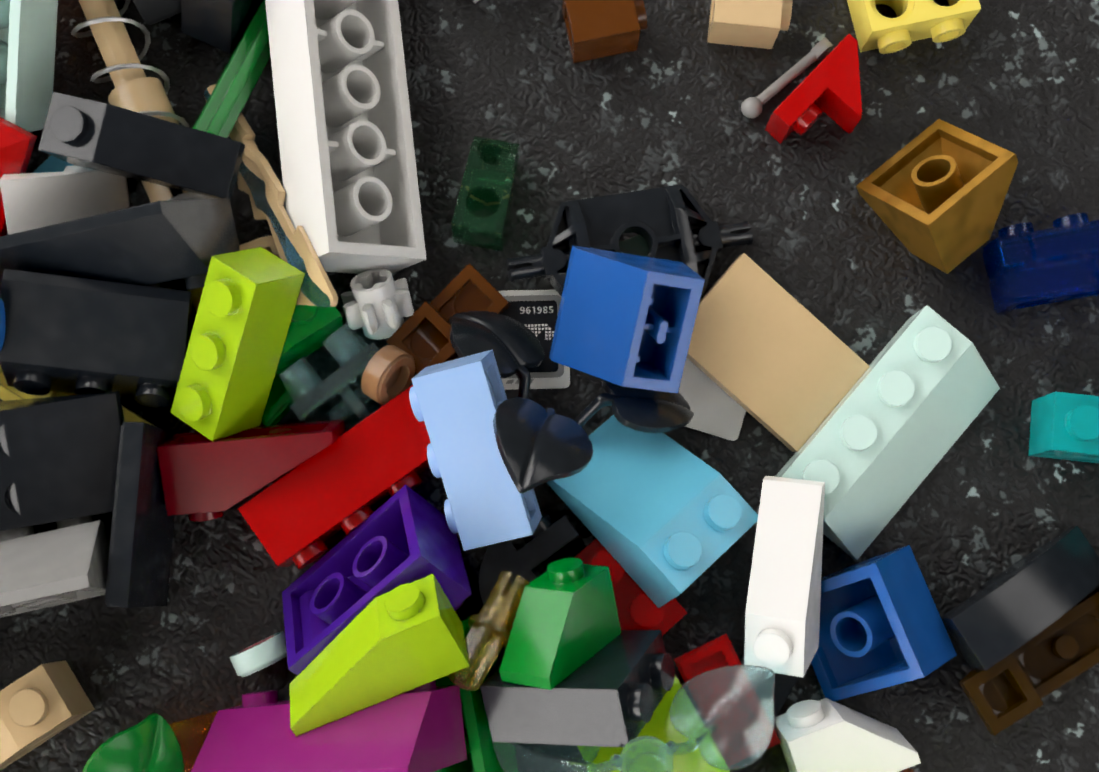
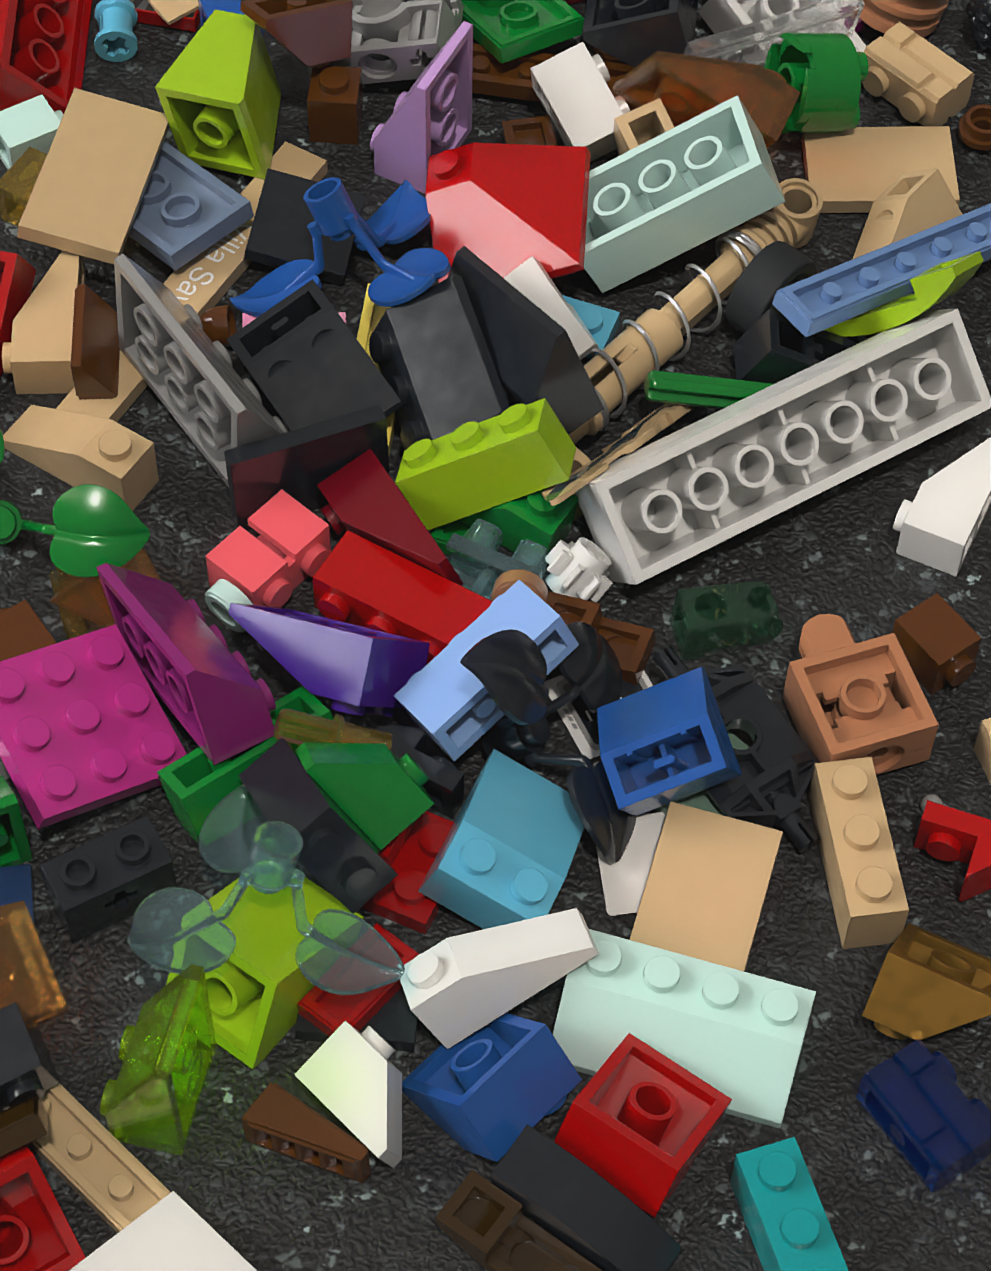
camera: 65 degrees right, 25 degrees down
(140, 146) = (612, 333): black slope -> none
(223, 590) = (271, 566): none -> coral piece
(383, 652) = (293, 659): lime slope -> none
(641, 122) = (857, 698): none -> nougat brick
(787, 196) = (857, 853): none -> tan brick
(971, 510) = (642, 1123): none -> red slope

